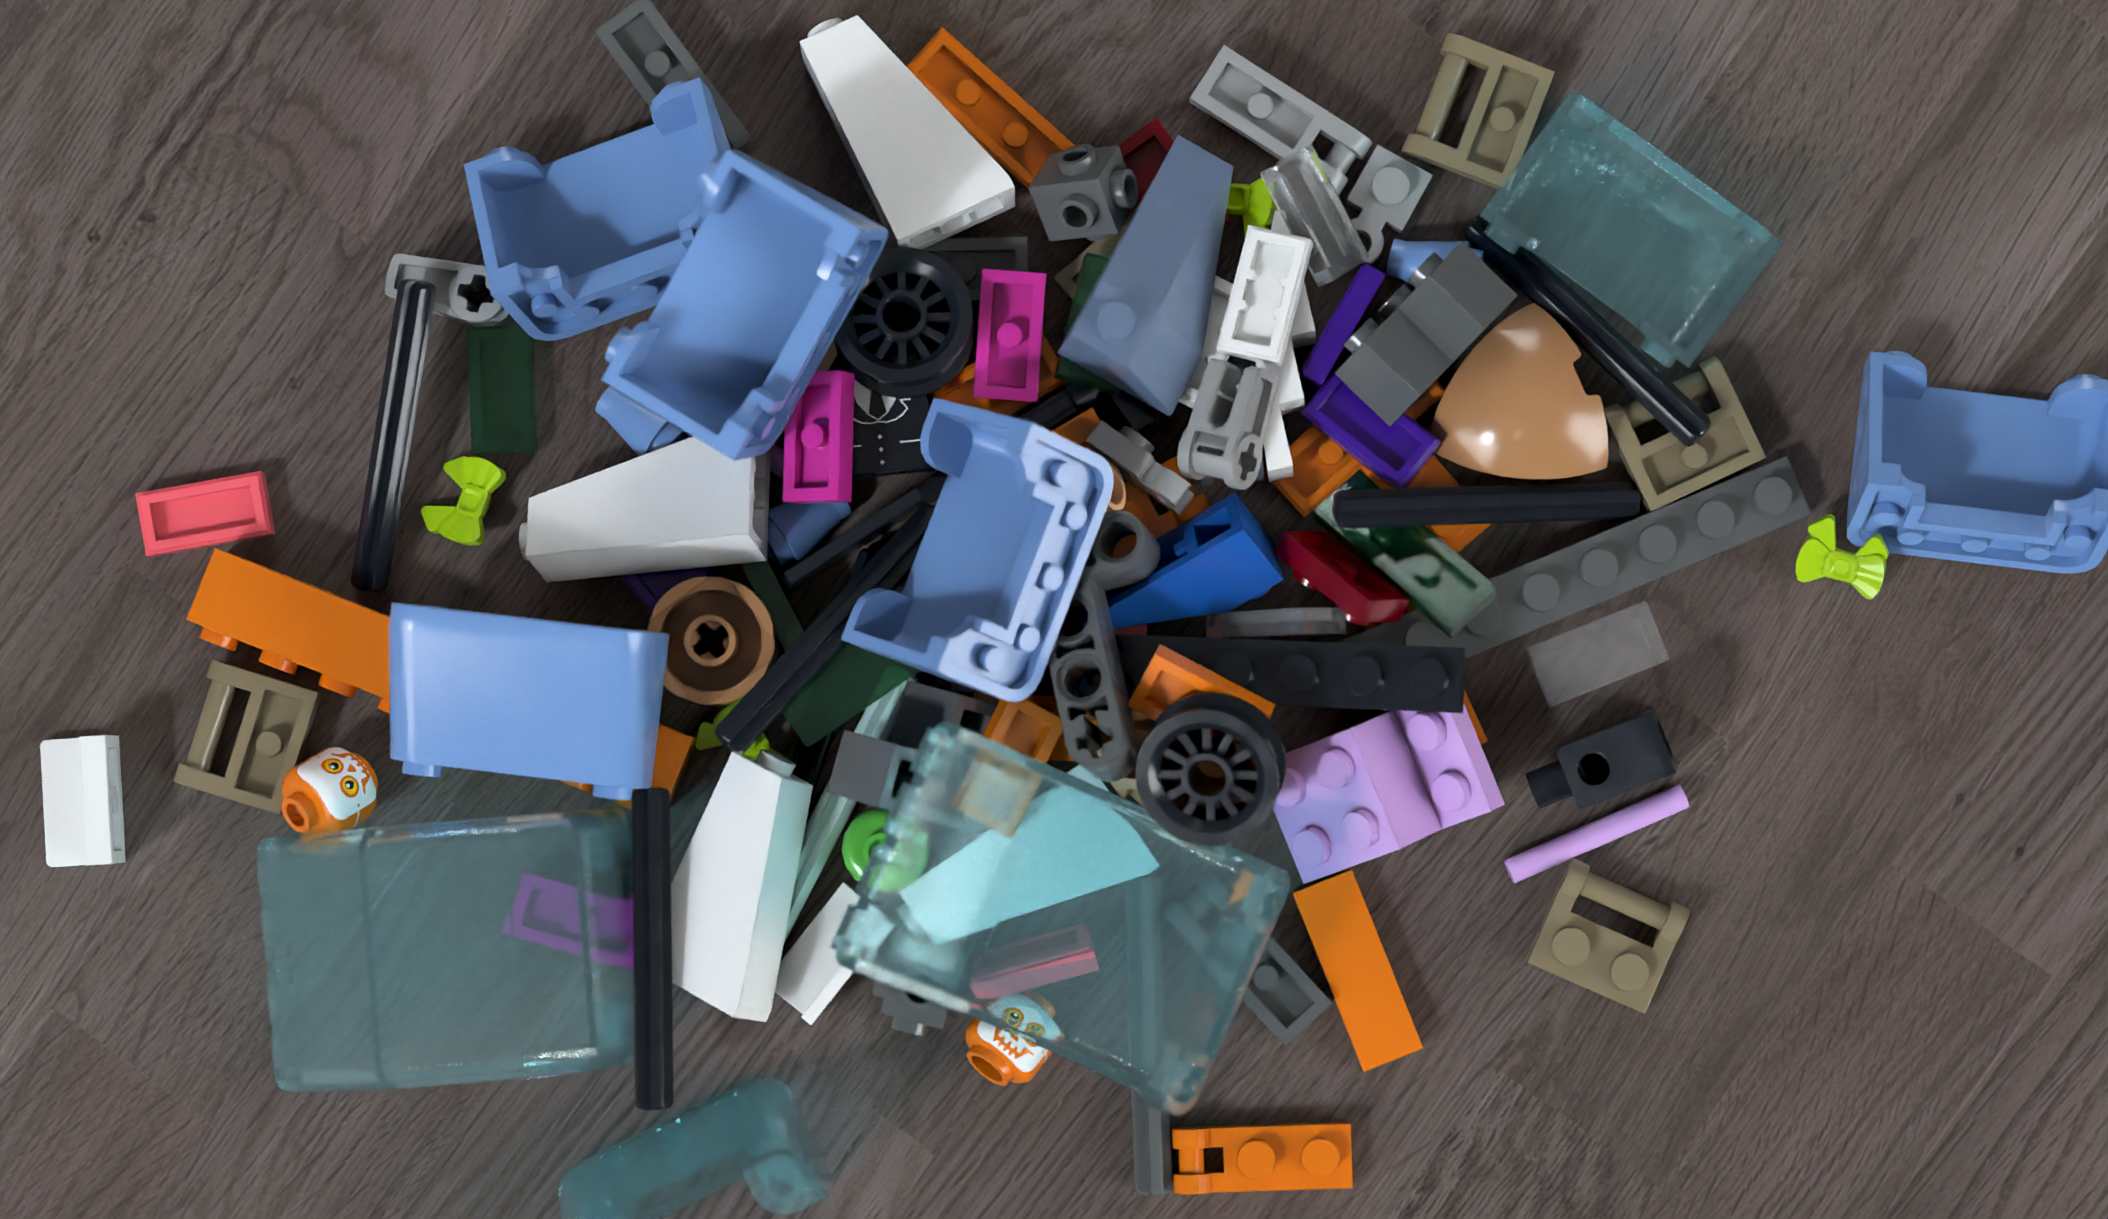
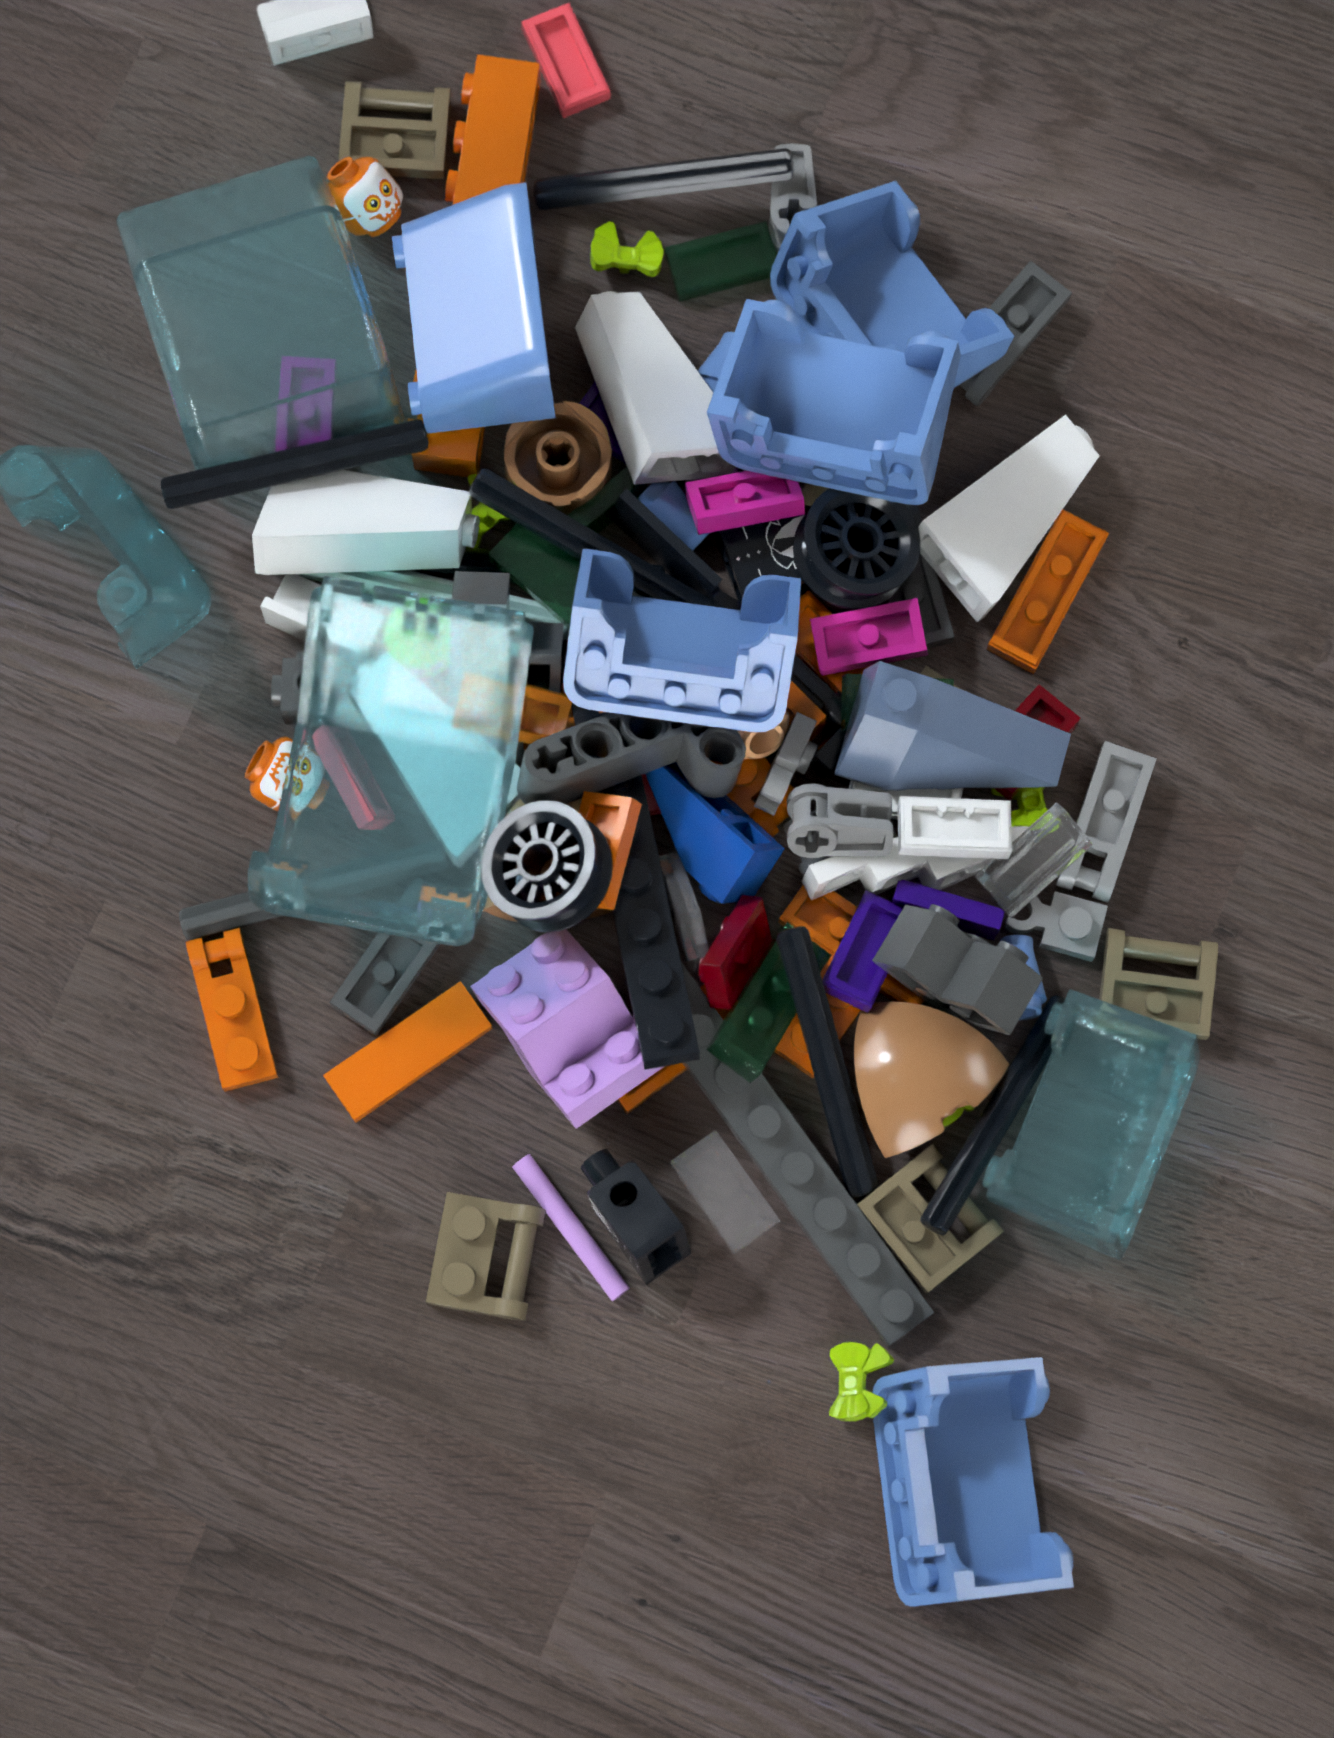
camera: 75 degrees right, 10 degrees down
(1084, 193) = (1002, 666): dark grey brick -> none

